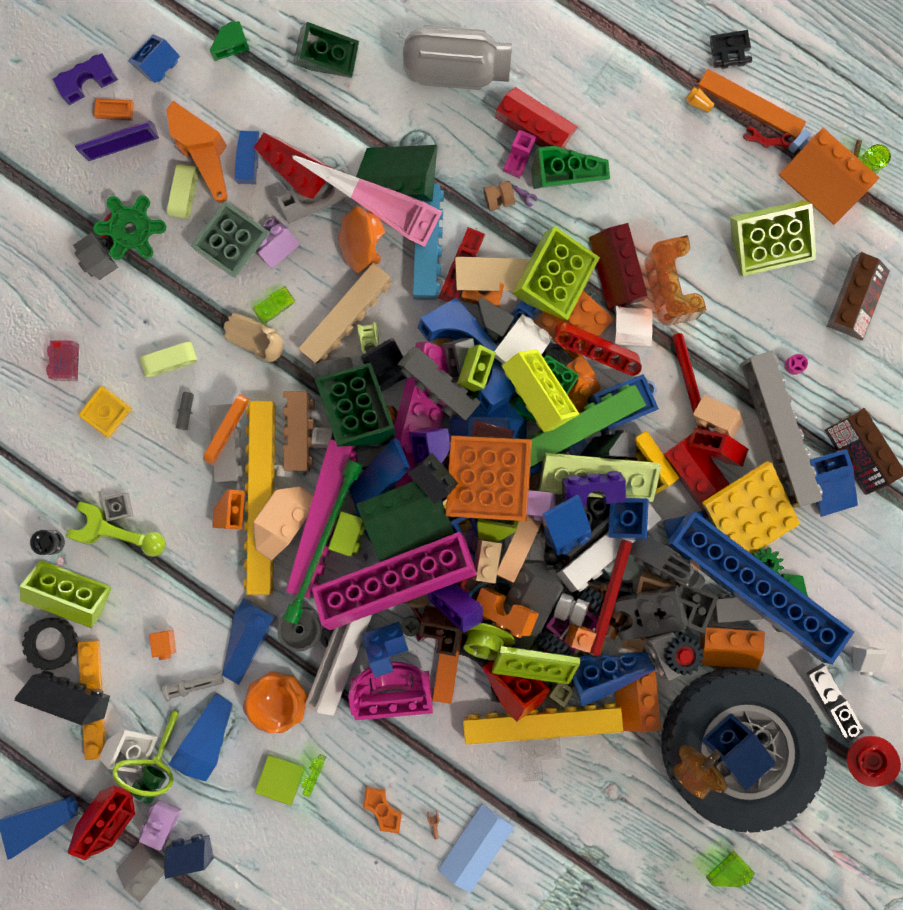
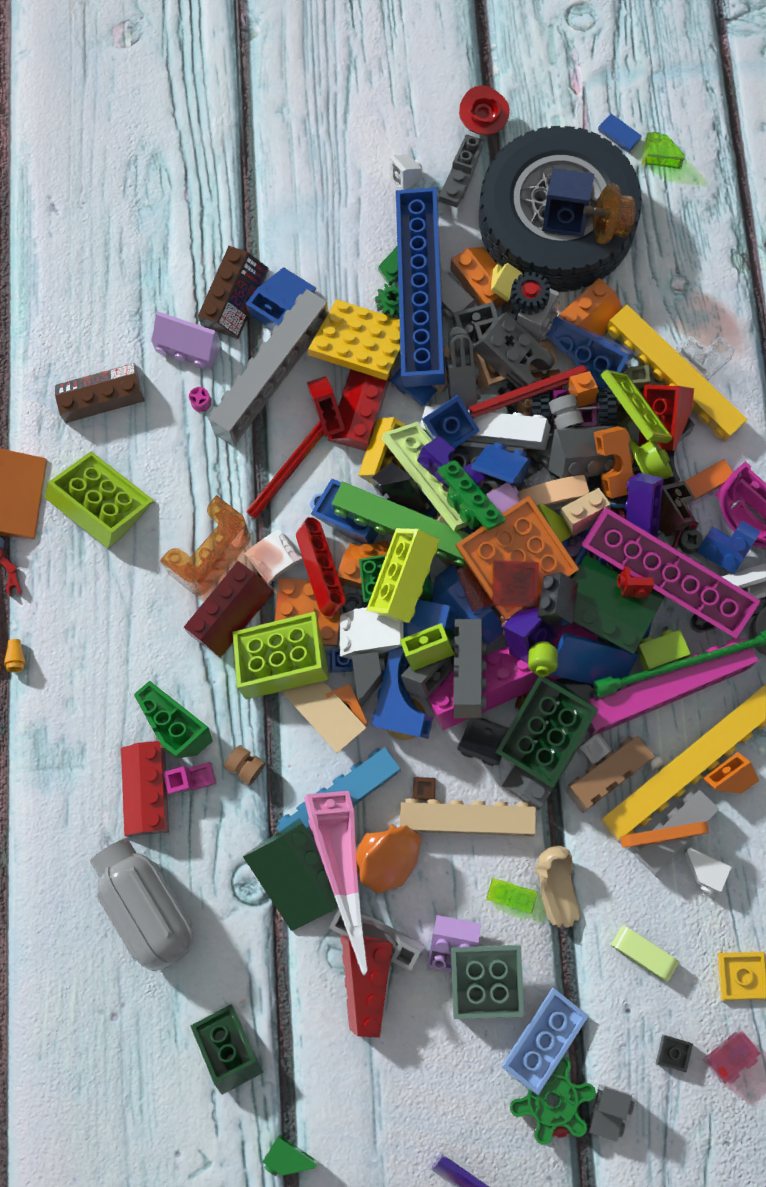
camera: 130 degrees left, 10 degrees down
(95, 327) = (674, 1053): none -> pearl dark grey piece
(167, 250) = (544, 1041): none -> light blue slope
(182, 191) = (474, 1078): yellowish green beam -> none
(184, 444) = (707, 871): none -> white slope
(185, 411) = (678, 897): dark grey axle -> none
(201, 143) = (416, 1092): orange slope -> none
(246, 158) = (390, 1041): blue slope -> none
(280, 520) = (699, 719): light nougat wedge -> none
(368, 336) = (471, 779): yellowish green piece -> none
(389, 304) = (424, 788): none -> reddish brown tile
(398, 545) = (634, 586): none -> red bracket
(403, 438) = (543, 659): none -> lime head
(469, 248) = (321, 752): red slope -> none
(469, 460) = (515, 584): none -> clear red tile
(526, 196) = (224, 743): medium lavender hand -> none
(558, 478) = (469, 499): none -> green bracket
(715, 656) = (503, 279): none -> light yellow slope
(718, 416) = (300, 424): light nougat brick -> none
(773, 855) = (619, 132): none -> blue tile
(850, 384) = (185, 341): none -> lavender slope

